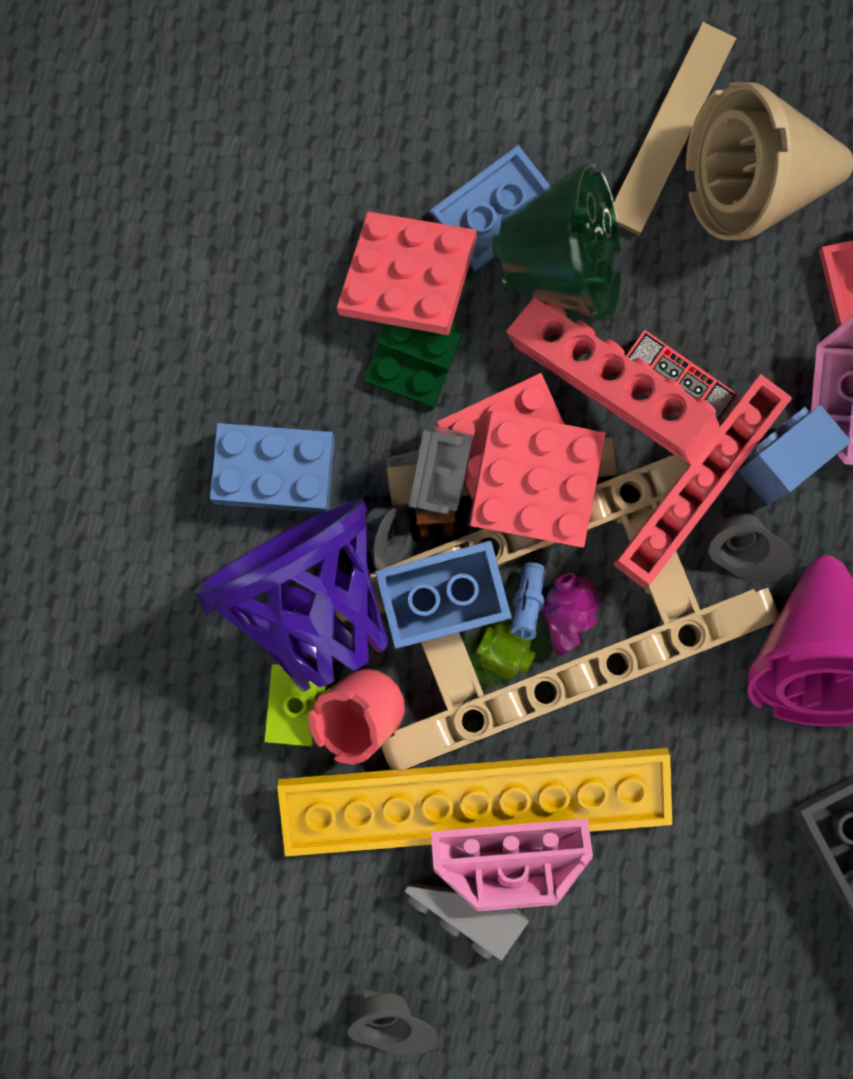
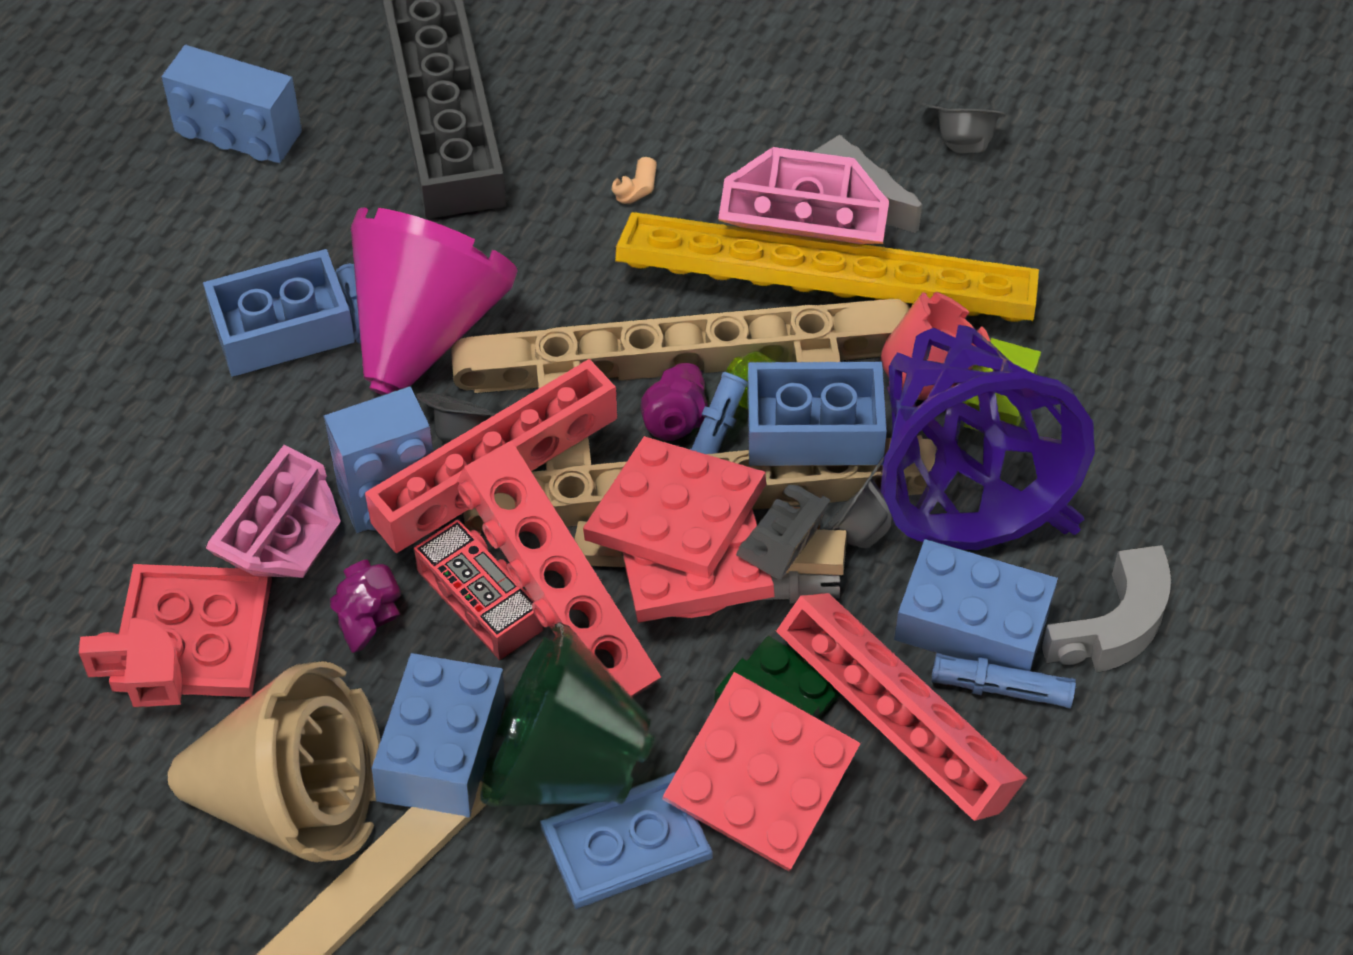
camera: 165 degrees left, 30 degrees down
(143, 494) = (1121, 635): none -> light grey arch
(250, 414) = (1013, 682): none -> medium blue pin
(262, 324) = (901, 706): none -> coral brick
(661, 240) = (439, 735): none -> medium blue brick
(675, 865) = (642, 185): none -> light nougat arm
(760, 345) = (365, 602): none -> magenta head

